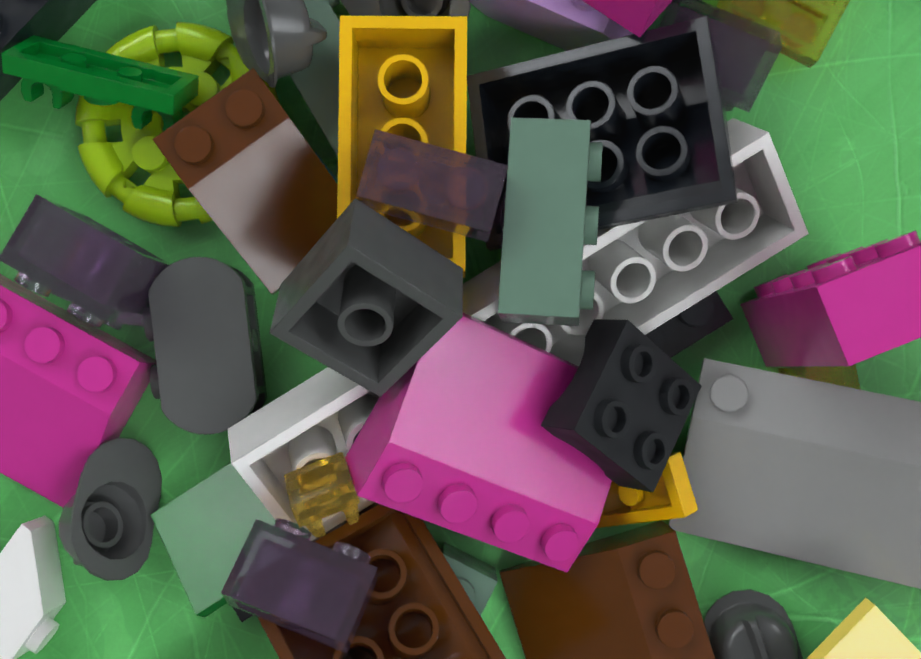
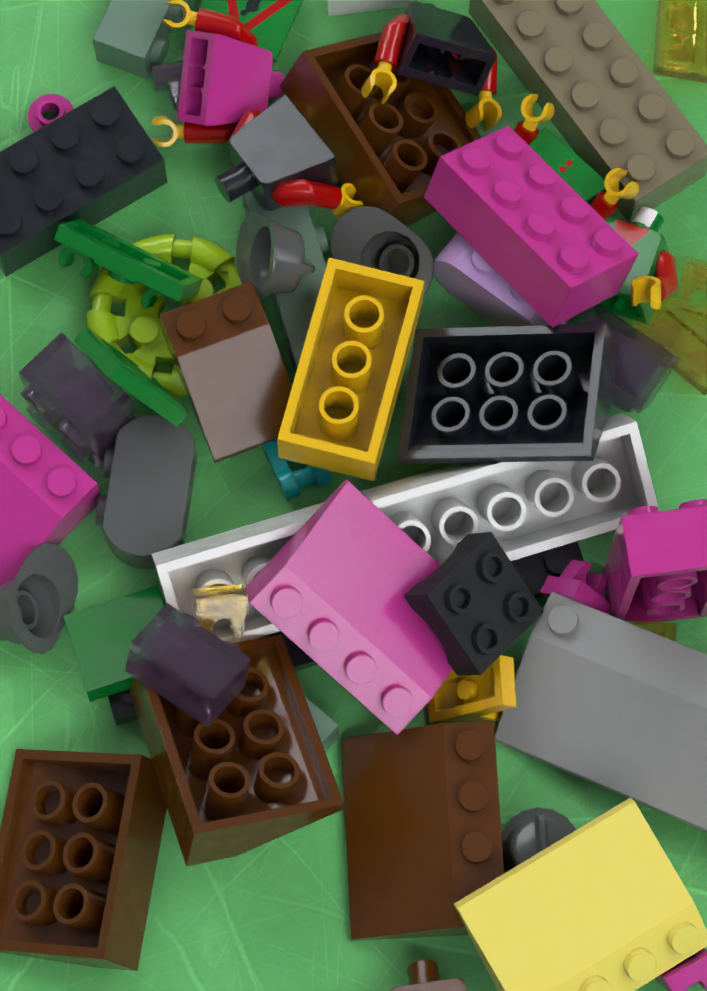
camera: 15 degrees right, 15 degrees down
(128, 224) = (129, 377): none -> green tile
(368, 299) = (297, 459): dark grey brick -> none
(431, 185) = (366, 391): brick -> none
(548, 222) = (446, 442): sand green brick -> none
(729, 340) = (577, 587): none -> dark pink tile

